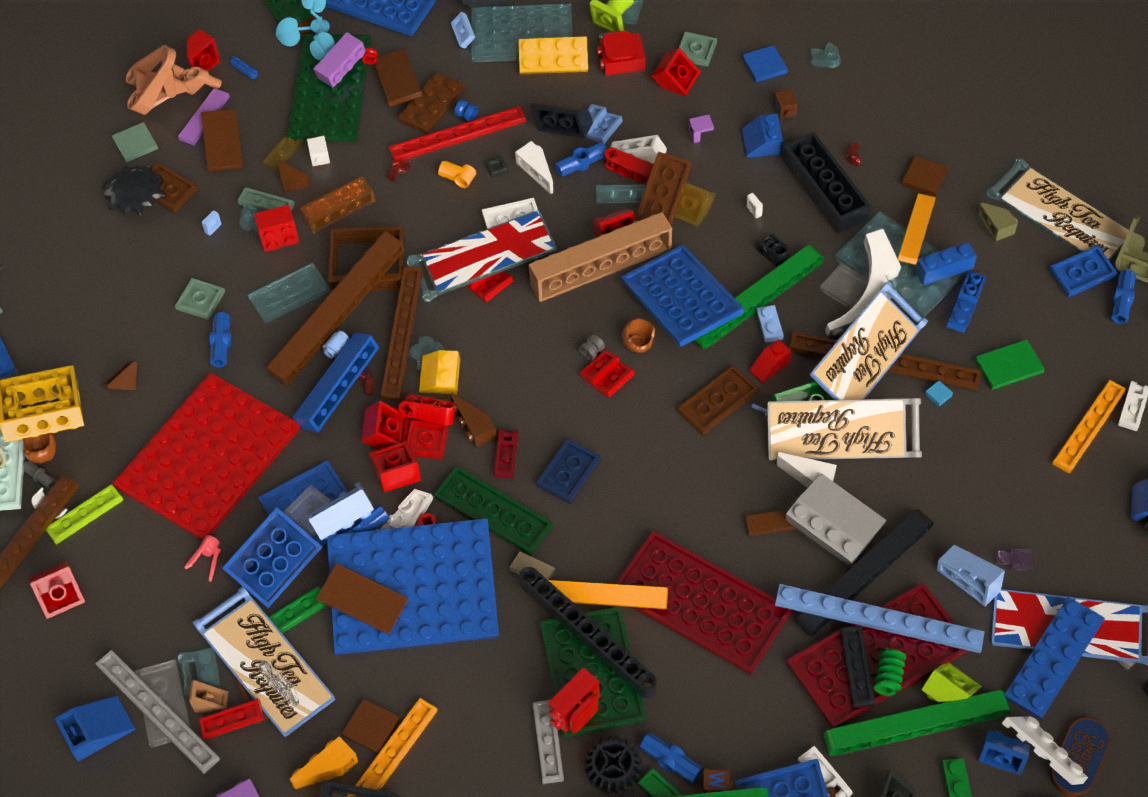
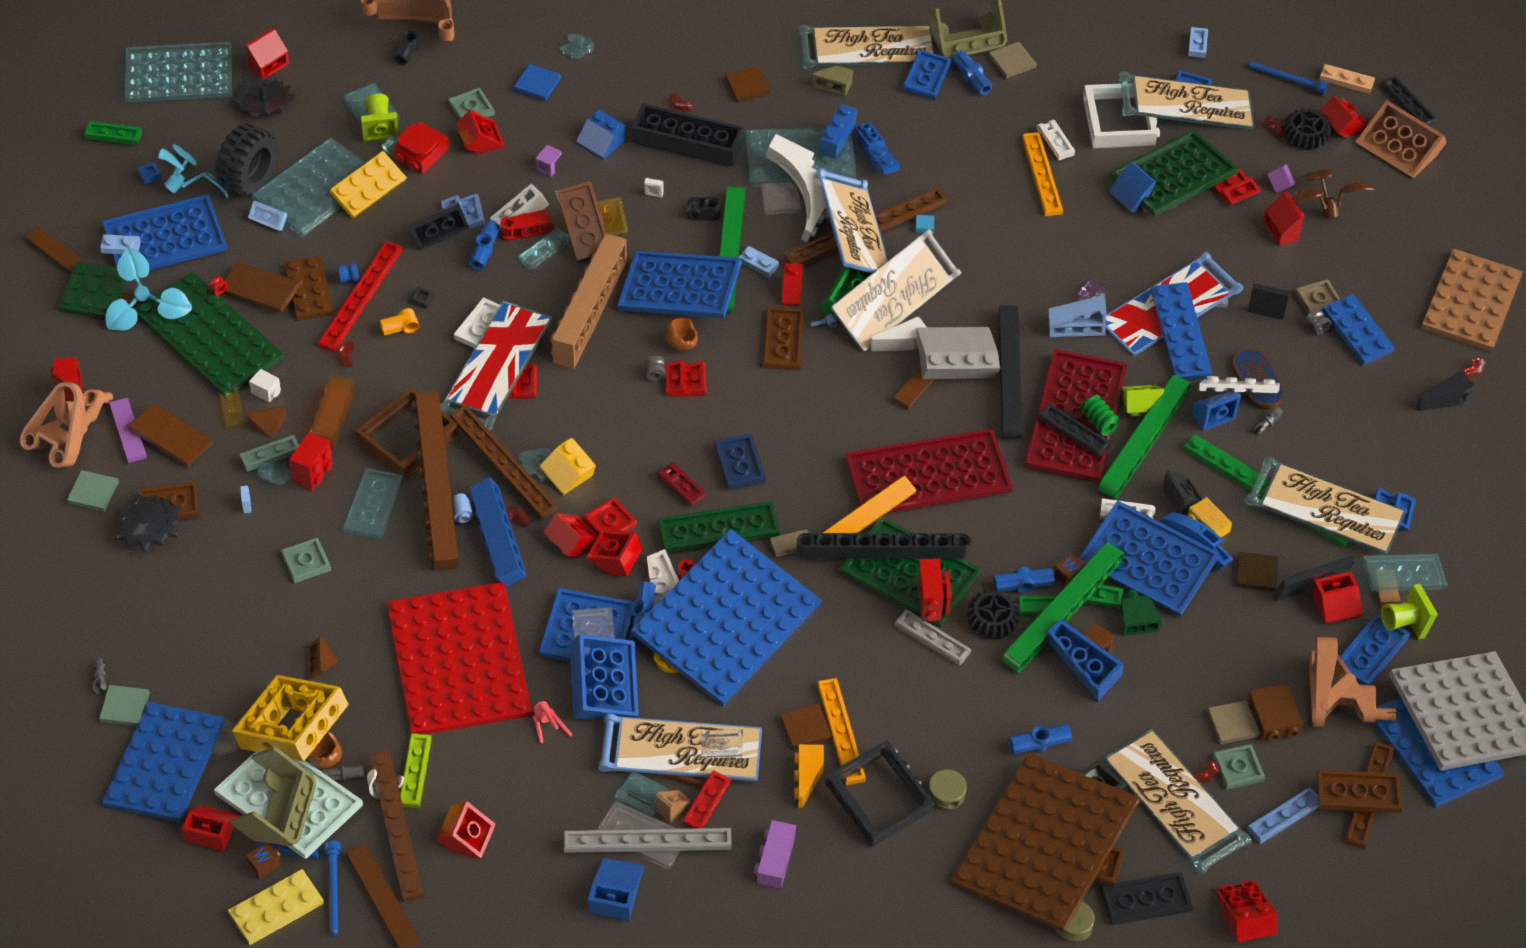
camera: 50 degrees left, 5 degrees down
(220, 339) = (364, 573): blue piece -> none
(244, 67) = (113, 370): blue axle -> none
(297, 610) = (662, 696): green tile -> none
(339, 60) = (204, 302): medium lavender brick -> none
(341, 512) = (624, 603): wedge -> none
(362, 599) = (707, 649): reddish brown tile -> none
(428, 409) = (590, 497): red piece -> none
(476, 422) = (632, 480): reddish brown slope -> none
(533, 162) = (456, 274): white slope -> none
(612, 222) = (569, 273): red slope -> none
(785, 104) = (590, 100): reddish brown brick -> none
(880, 618) = (1054, 390): medium blue plate -> none
(916, 229) = (790, 121): light orange tile -> none
(1009, 364) = (948, 171): green tile -> none

